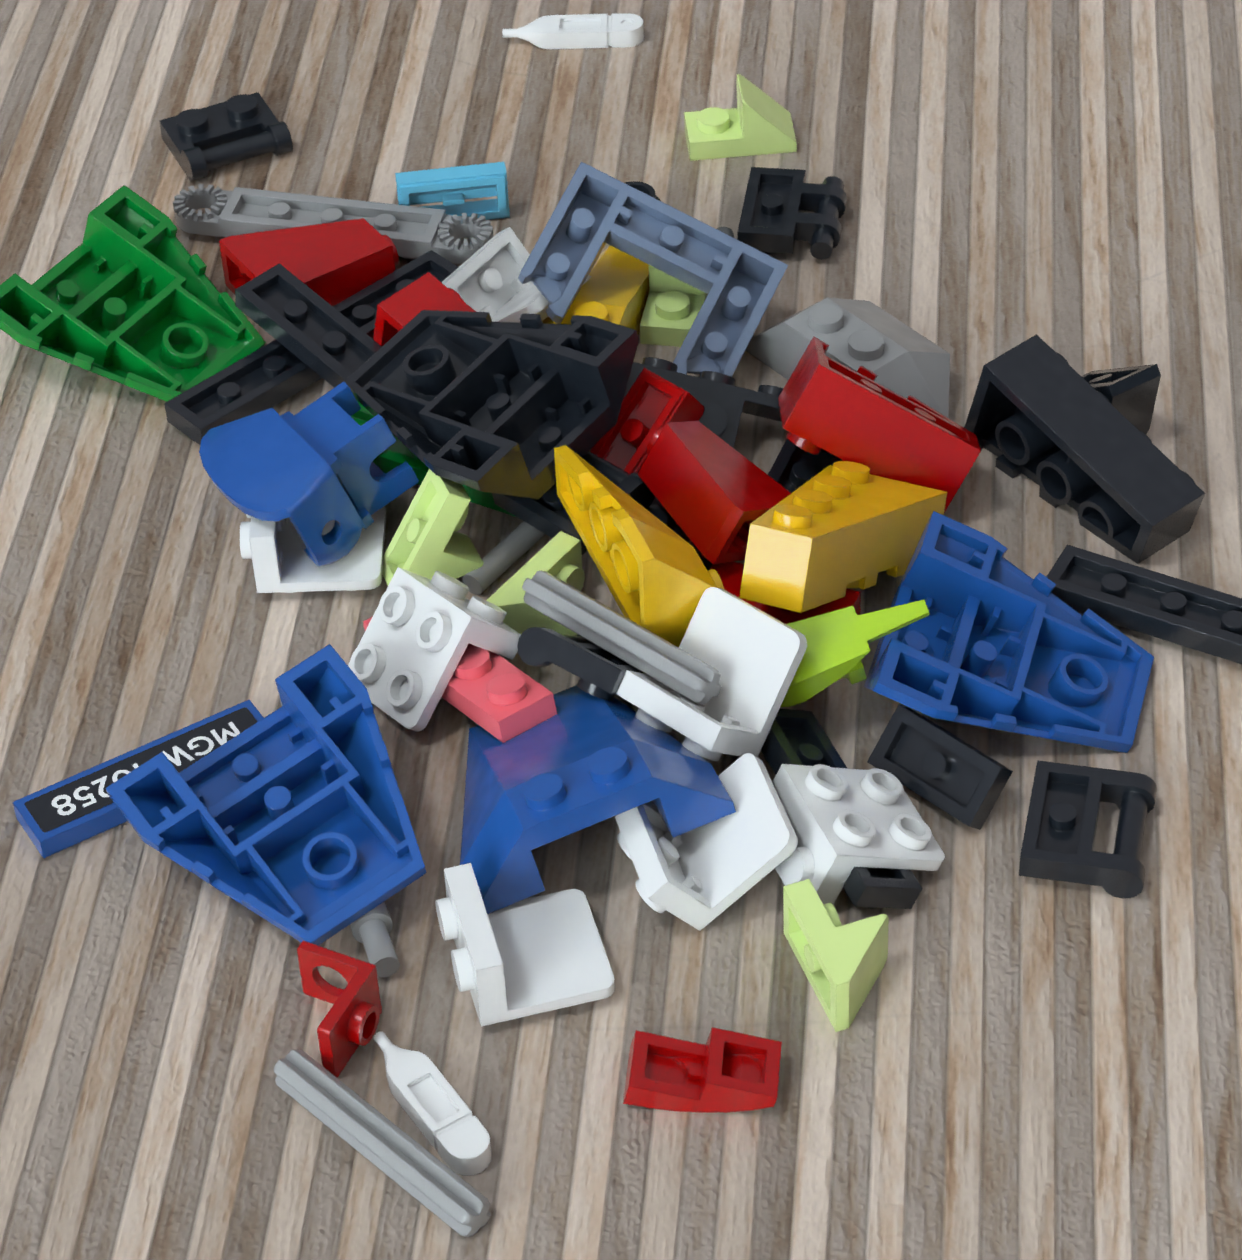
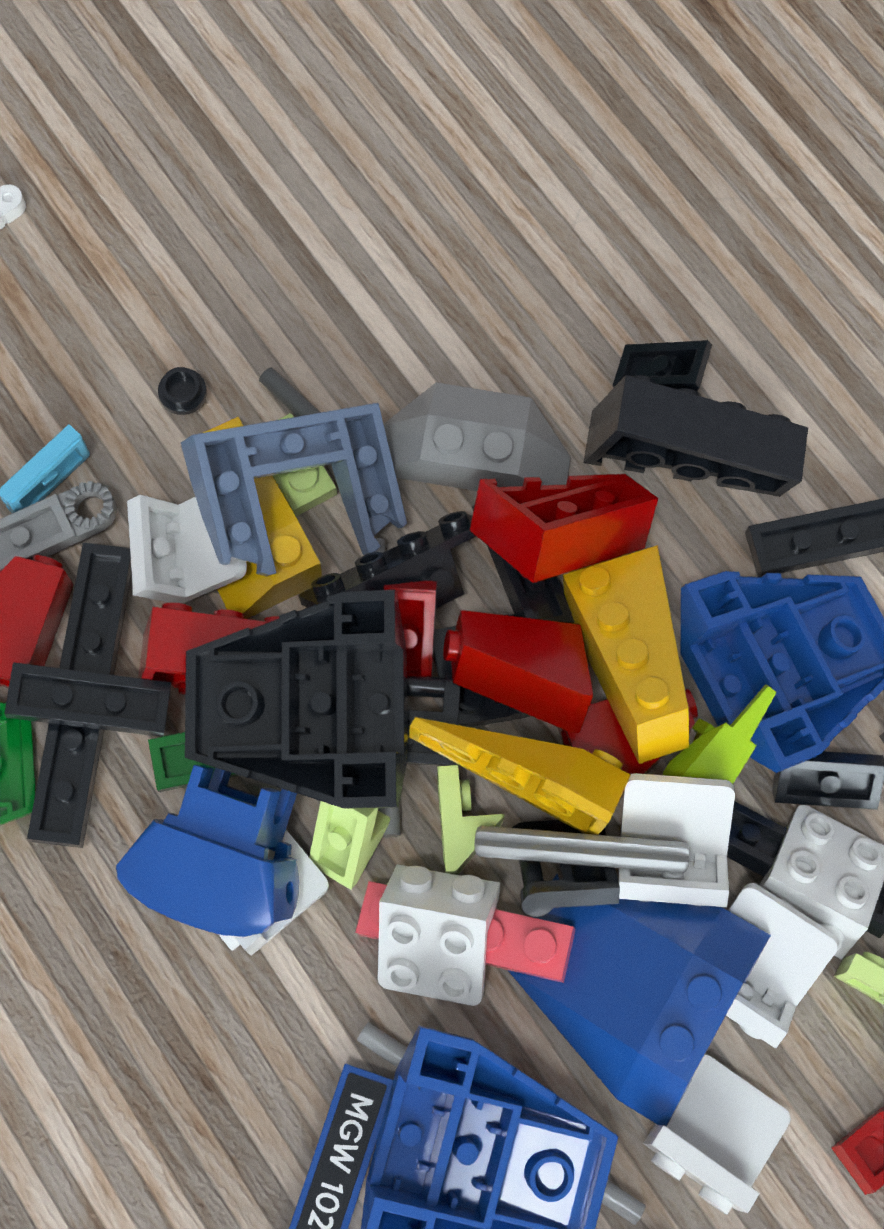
camera: 45 degrees left, 30 degrees up
(751, 129) = (187, 258): yellowish green slope -> none
(773, 214) = (288, 332): black plate -> none

